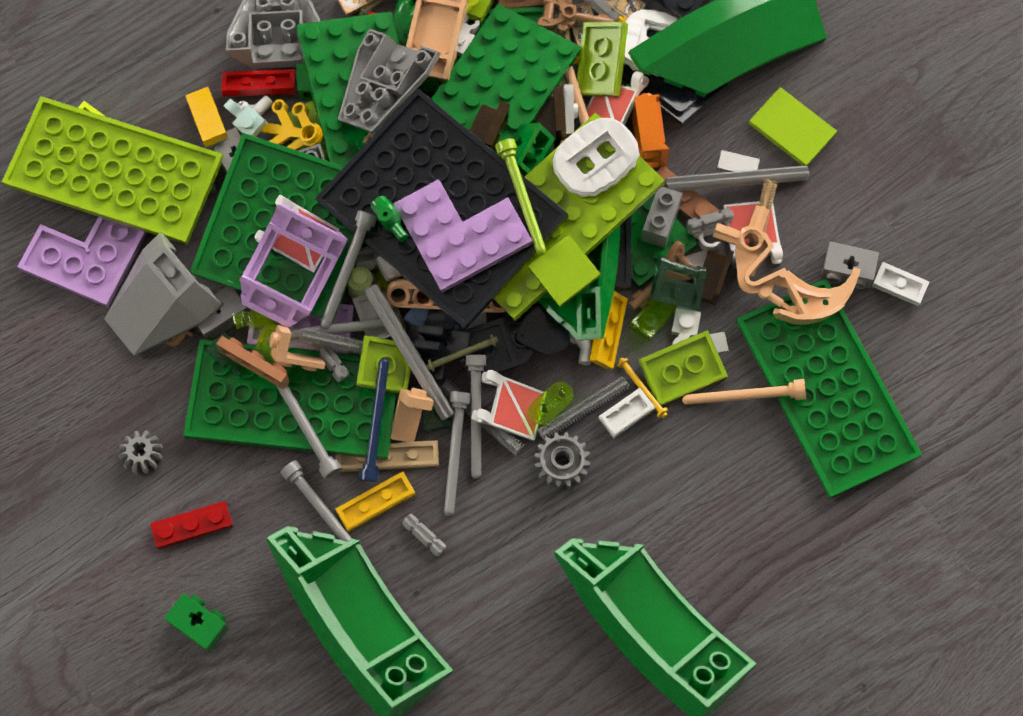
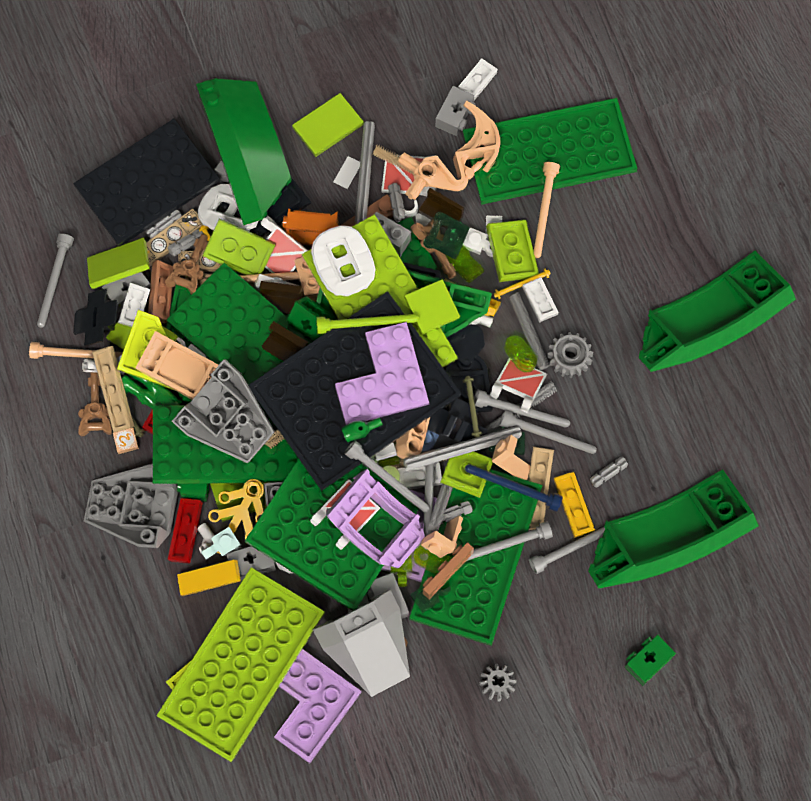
camera: 80 degrees left, 0 degrees up
(191, 525) = (565, 653): red plate -> none

